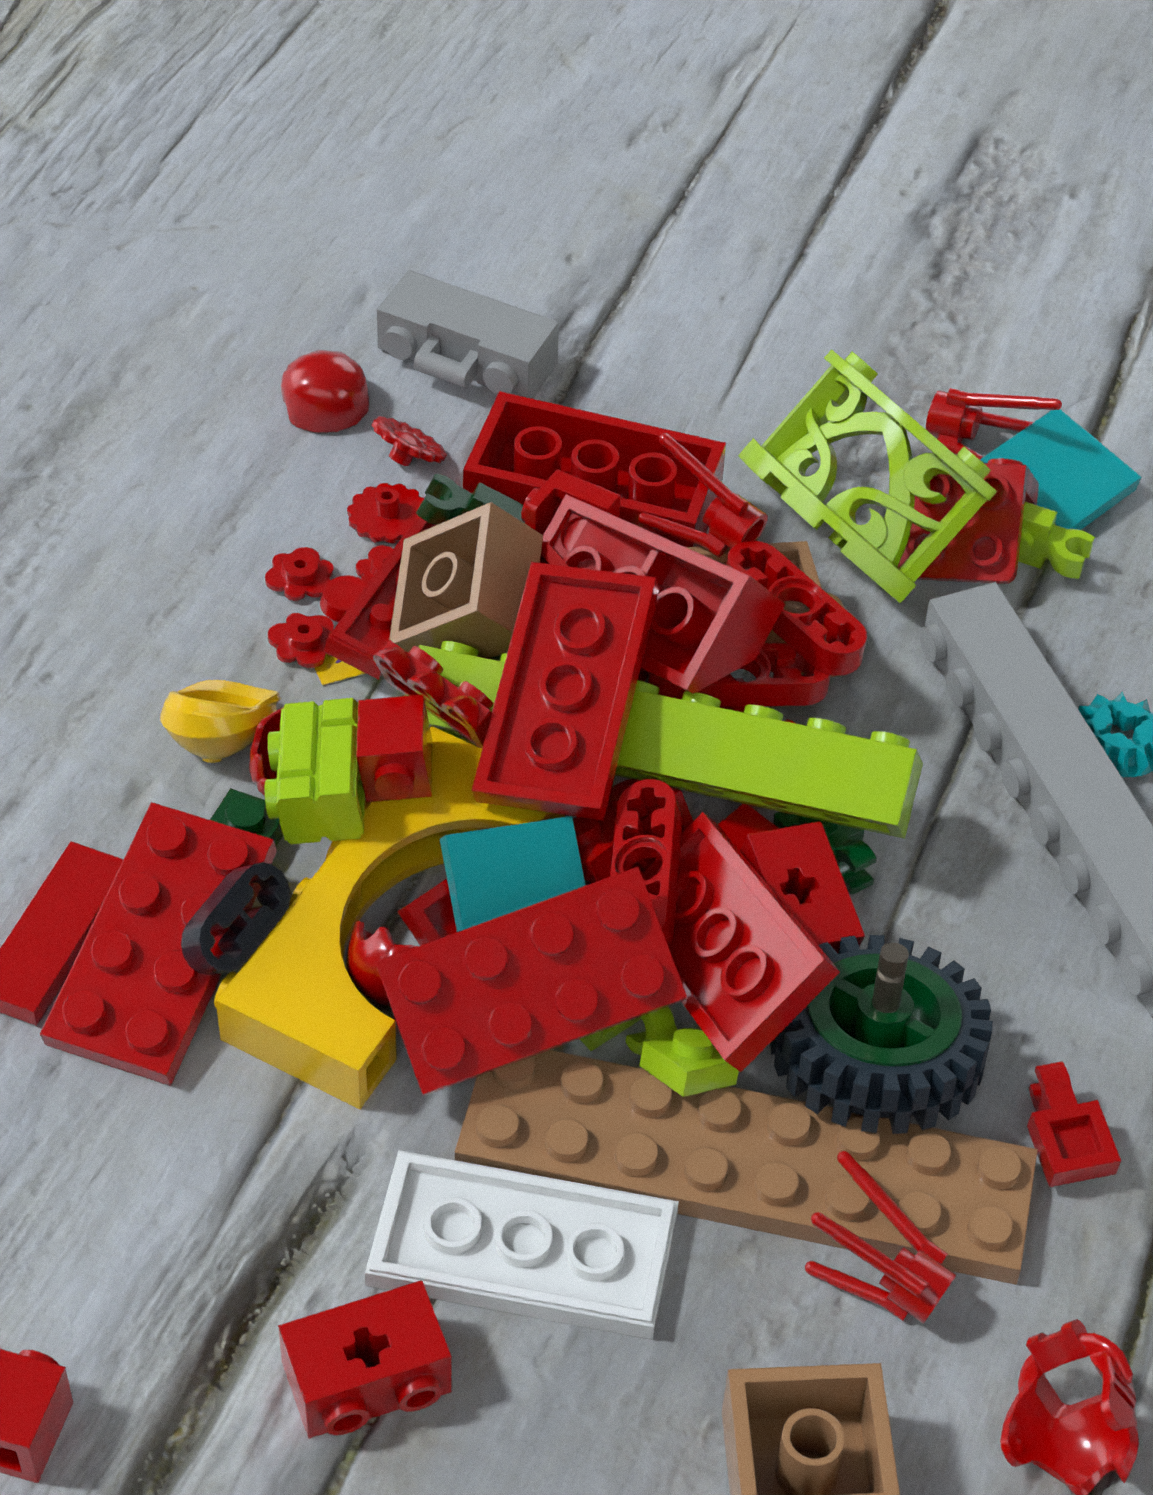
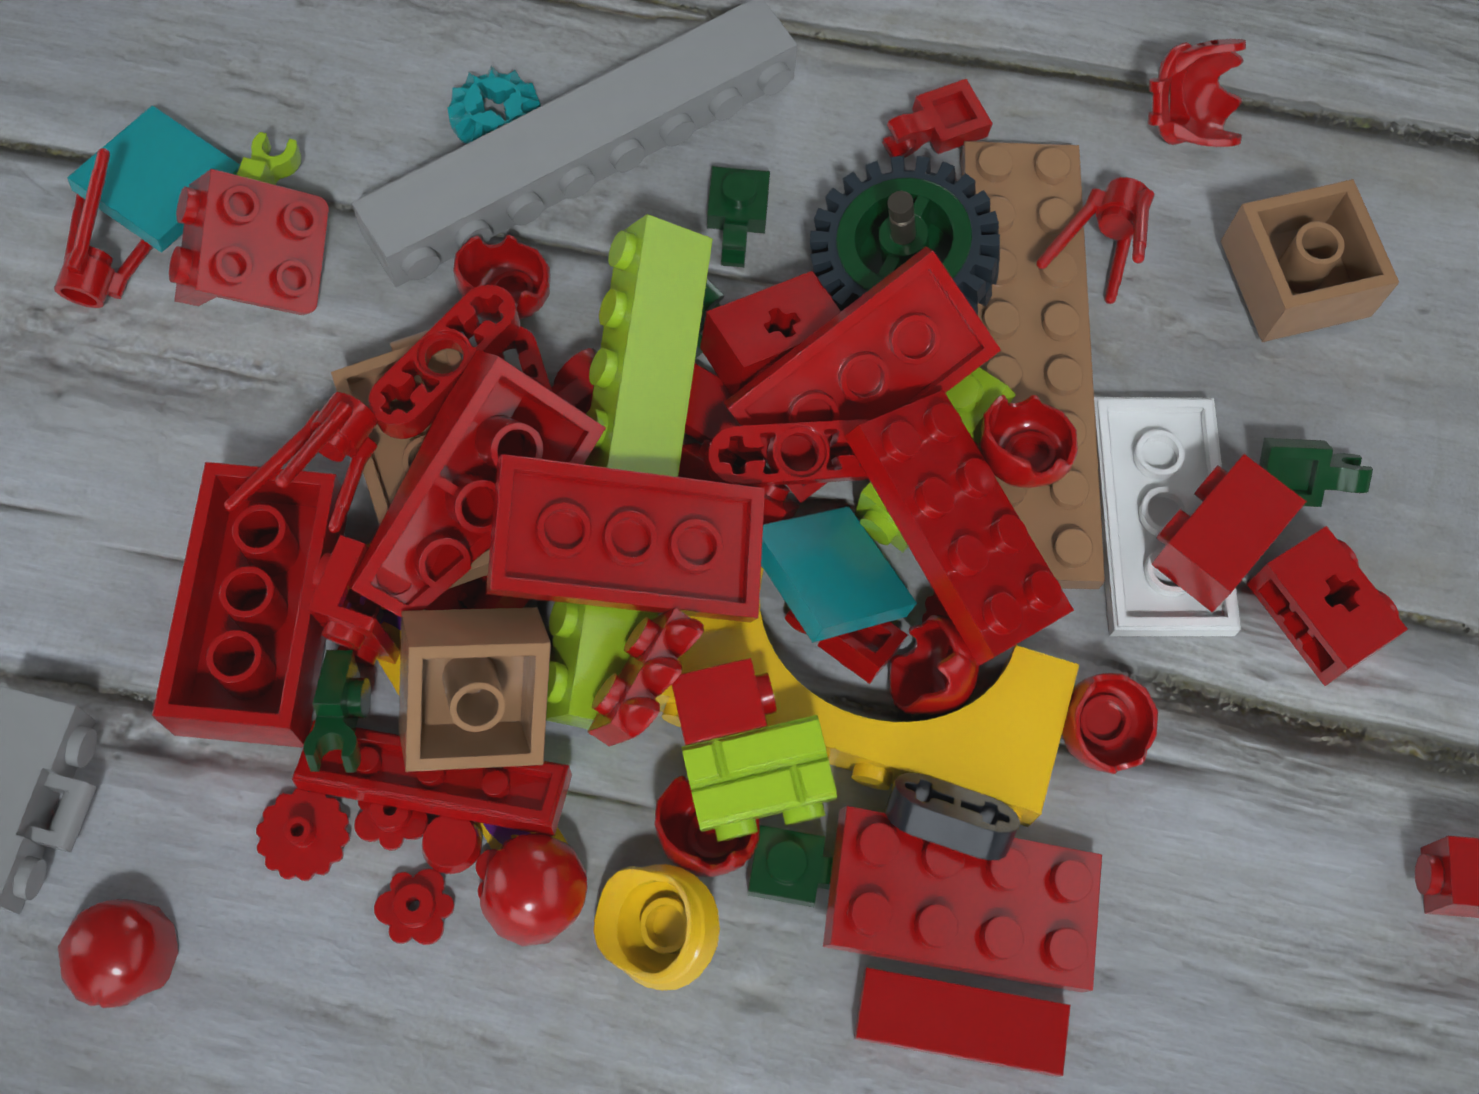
camera: 105 degrees left, 20 degrees up
(283, 637) = (533, 889): none -> red hair
(293, 1100) = (1110, 722): none -> red hair
(408, 442) = (196, 829): red piece -> none
(471, 1256) = (1227, 532): none -> red brick
(531, 1386) = (1312, 468): none -> dark green plate
(616, 1069) = (1028, 442): none -> red hair
(880, 543) = (210, 415): lime fence -> none
(904, 693) = (507, 265): none -> red hair
(977, 922) = (737, 207): none -> dark green plate

